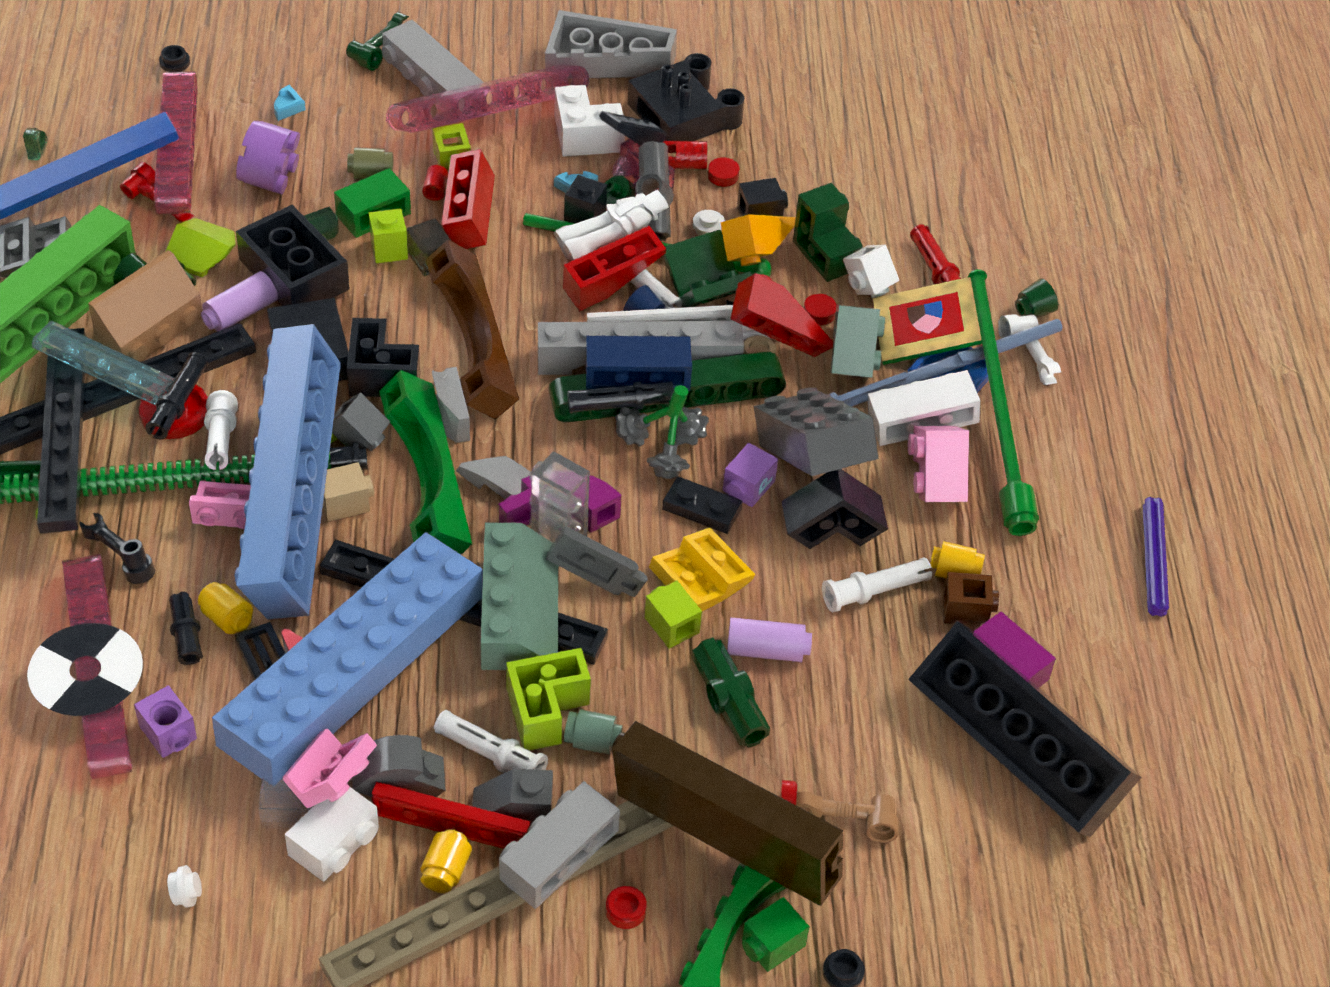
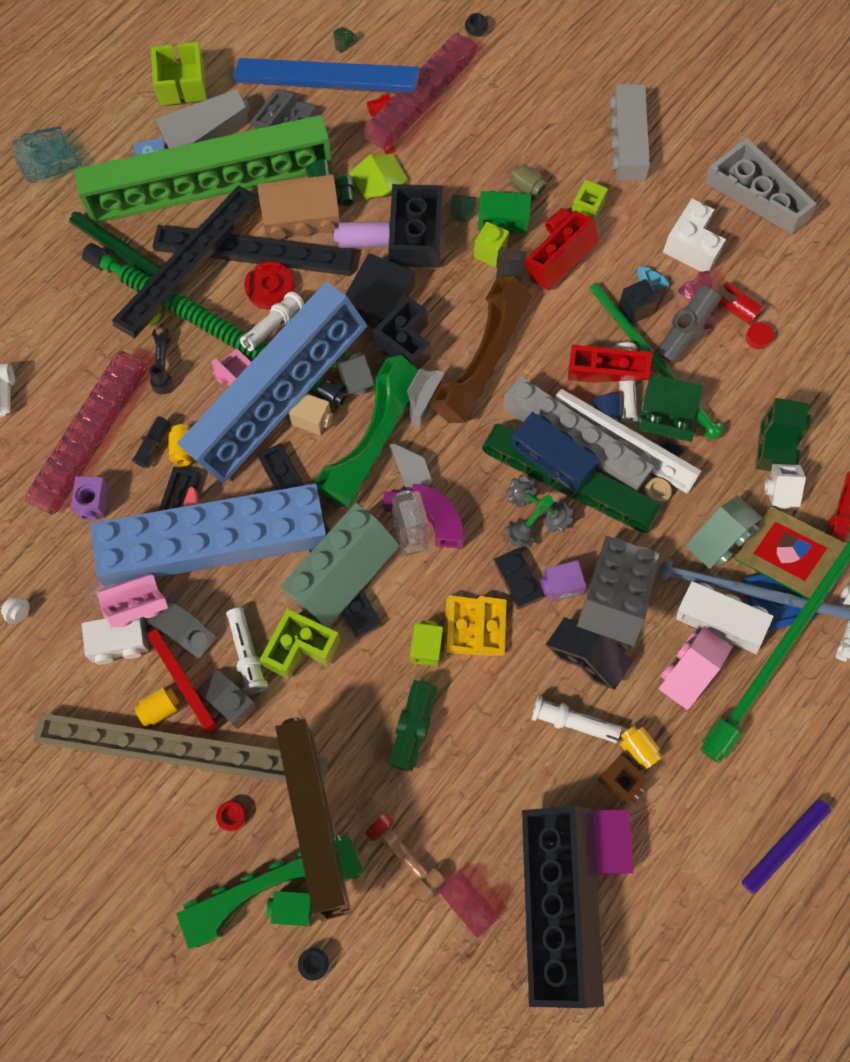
camera: 45 degrees right, 20 degrees up
(51, 662) = (64, 455): sticker -> none
(102, 362) = (244, 229): clear light blue tile -> none
(171, 406) = (261, 284): black pin -> none
(268, 156) = (464, 137): medium lavender brick -> none
(288, 103) = (518, 101): medium azure tile -> none
(369, 53) = (600, 92): dark green brick -> none
(475, 98) = (633, 170): clear pink beam -> none
(558, 844) = (214, 751): light grey brick -> none
(592, 731) = (309, 688): sand green brick -> none
(596, 563) = (407, 576): dark grey hinge -> none
(618, 397) = (534, 474): black pin -> none
(619, 188) = (668, 306): dark green tile -> none
(619, 221) = (646, 334): white piece -> none
(635, 129) = (715, 267): black slope -> none
(680, 102) = (773, 259): black piece -> none
(707, 221) = (711, 369): white plate -> none
(754, 236) = (724, 407): light orange slope -> none
(762, 198) = (761, 379): black brick -> none
(768, 640) = (468, 708): lavender brick -> none
(777, 314) = (679, 476): red slope -> none
(821, 308) = (728, 487): red tile -> none
(935, 806) = (468, 903): none -> clear pink tile

